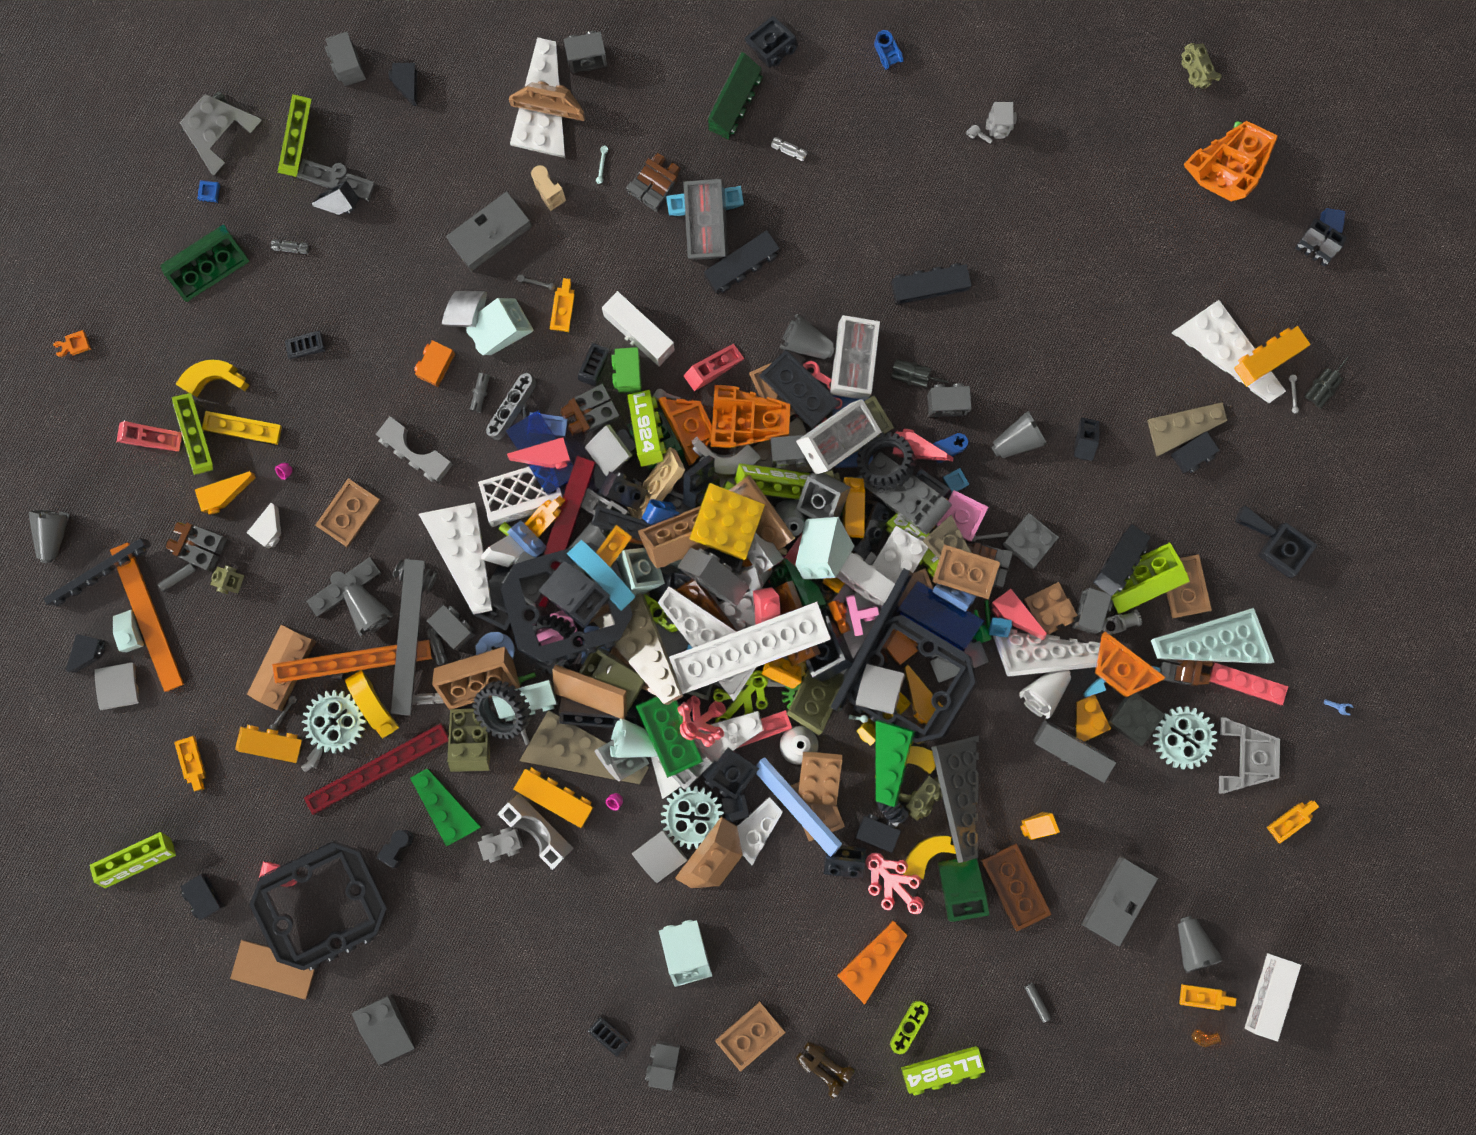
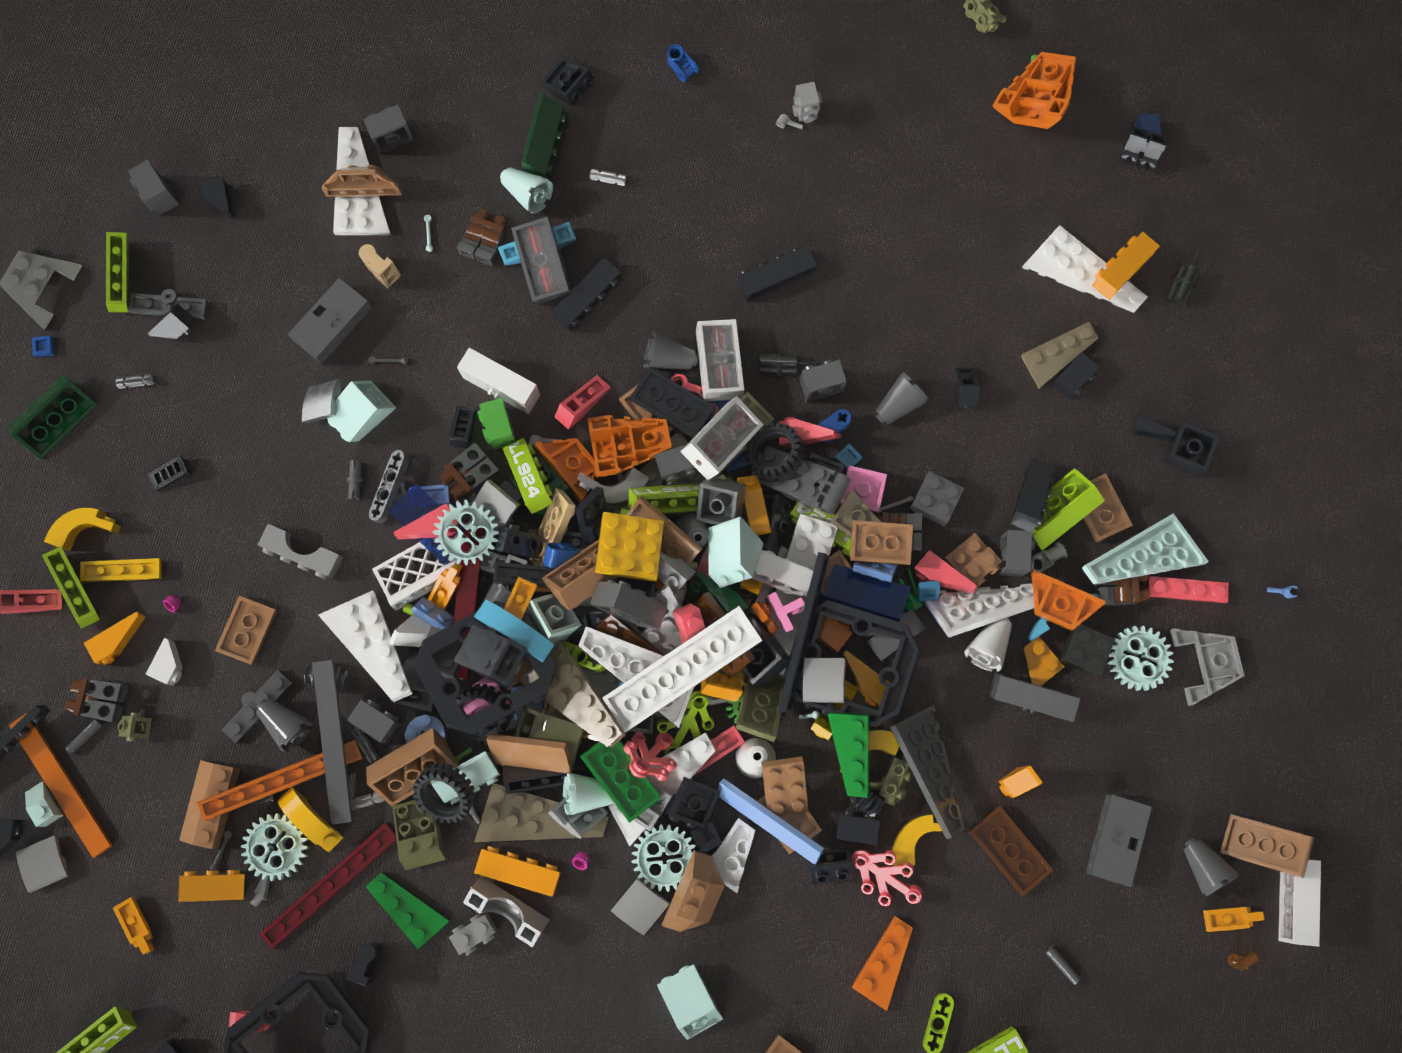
camera: 10 degrees left, 5 degrees down
(434, 363) = (302, 461): orange brick -> none
(562, 307) = (419, 378): light orange hinge -> none
(590, 460) = (452, 545): none -> light aqua gear
(707, 143) = (527, 188): none -> light aqua cone
(963, 889) = (958, 866): dark green slope -> none
(1255, 939) = (1267, 845): none -> medium nougat tile
(1292, 379) = (1150, 284): light grey hinge -> none
(1292, 821) = (1269, 716): light orange hinge -> none

